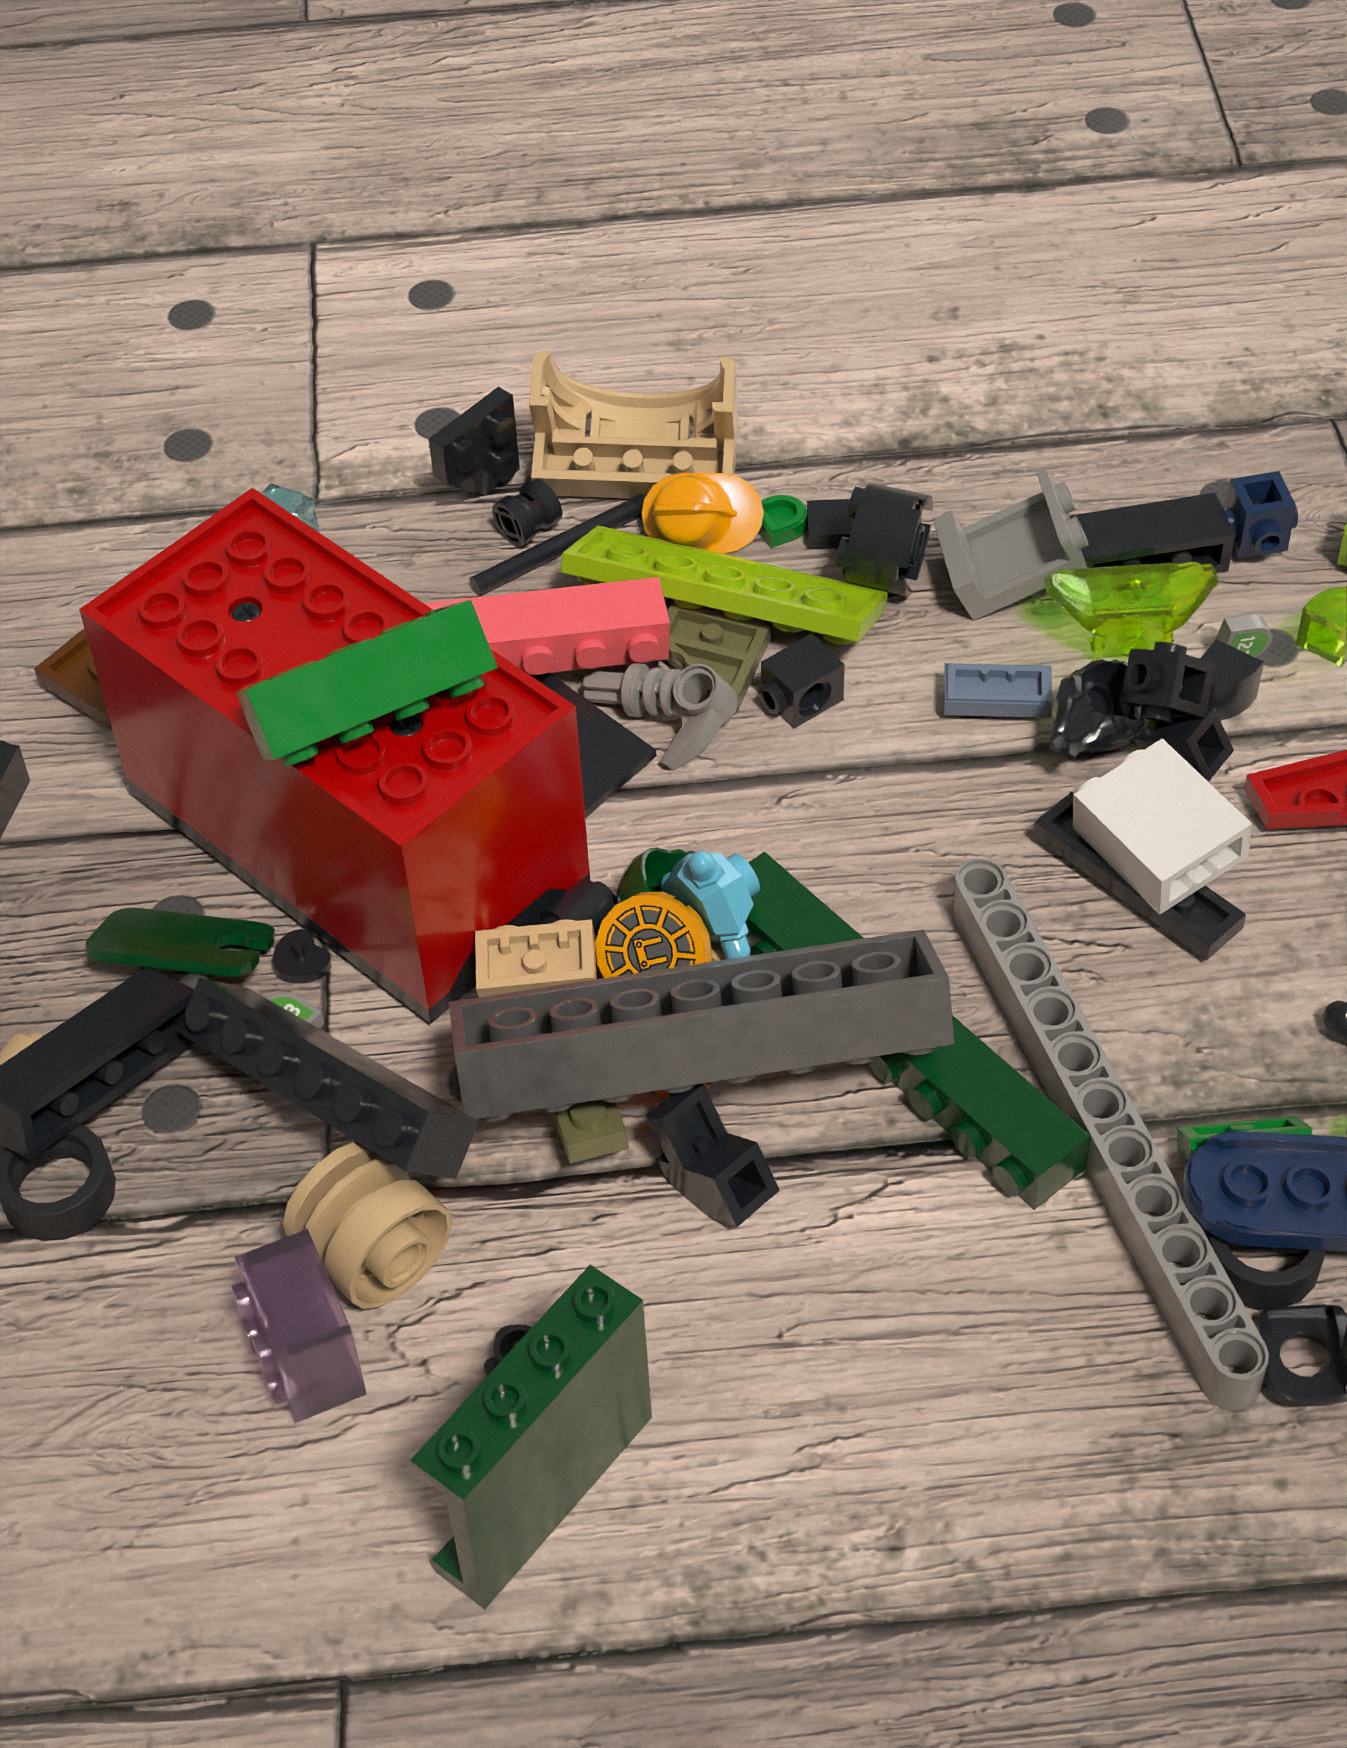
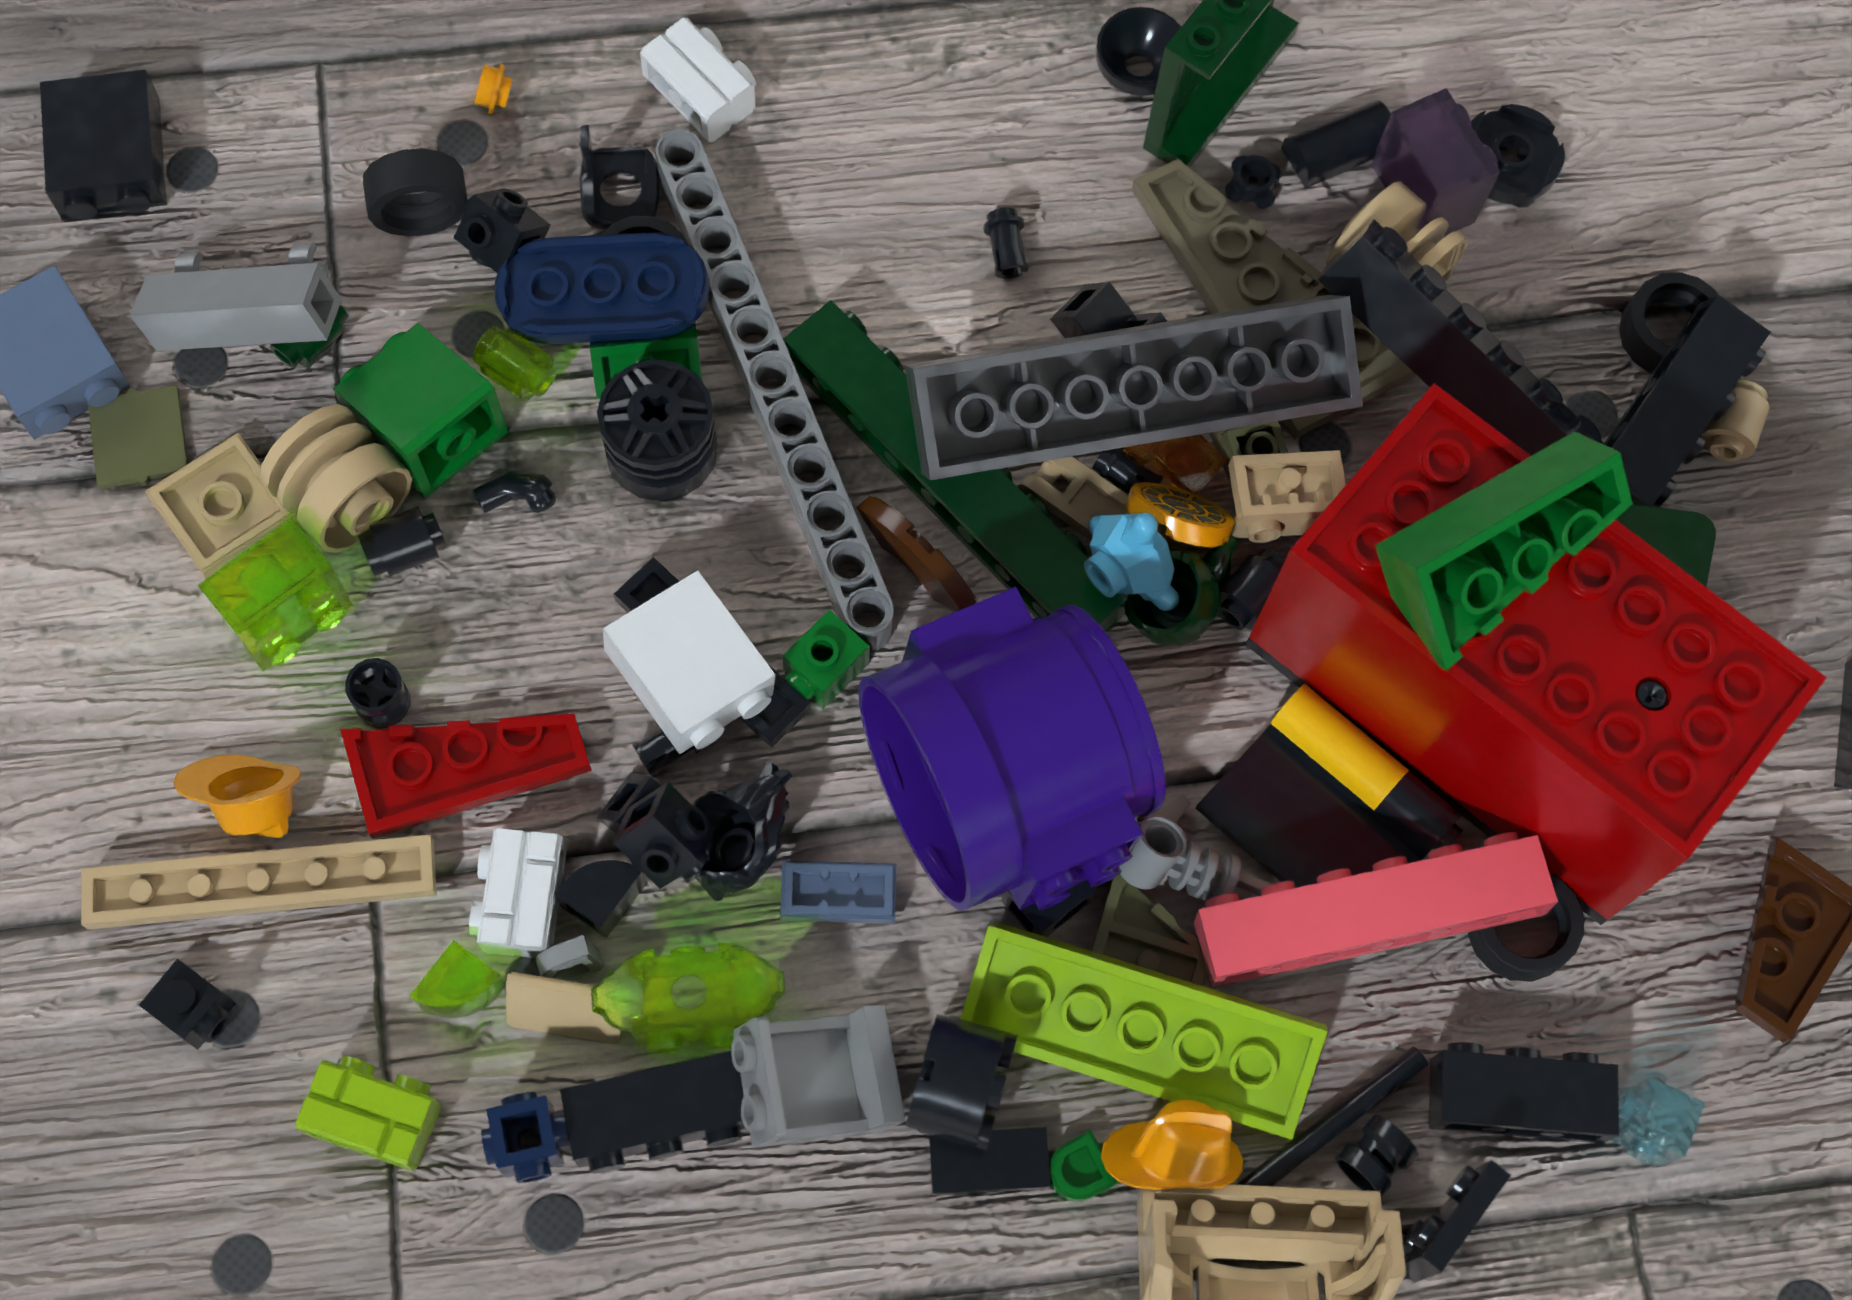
camera: 170 degrees right, 20 degrees up
(197, 1416) = (1536, 144): none -> black plate
(402, 1404) = (1337, 143): none -> black brick
(405, 544) = (1523, 1094): none -> black brick
(530, 1215) = (1243, 268): none -> dark tan wing
(642, 1477) = (1131, 34): none -> black piece
(830, 1291) = (1004, 230): none -> black pin
(846, 708) = (1013, 752): none -> dark purple cylinder
(965, 968) = (912, 549): none -> reddish brown tile
(1028, 853) = (825, 659): none -> green brick
(1217, 606) = (555, 1008): none -> tan slope
(1221, 1048) = (655, 456): none -> black wheel
(1225, 1479) = (699, 78): none -> white brick
(1296, 685) = (519, 892): none -> white brick

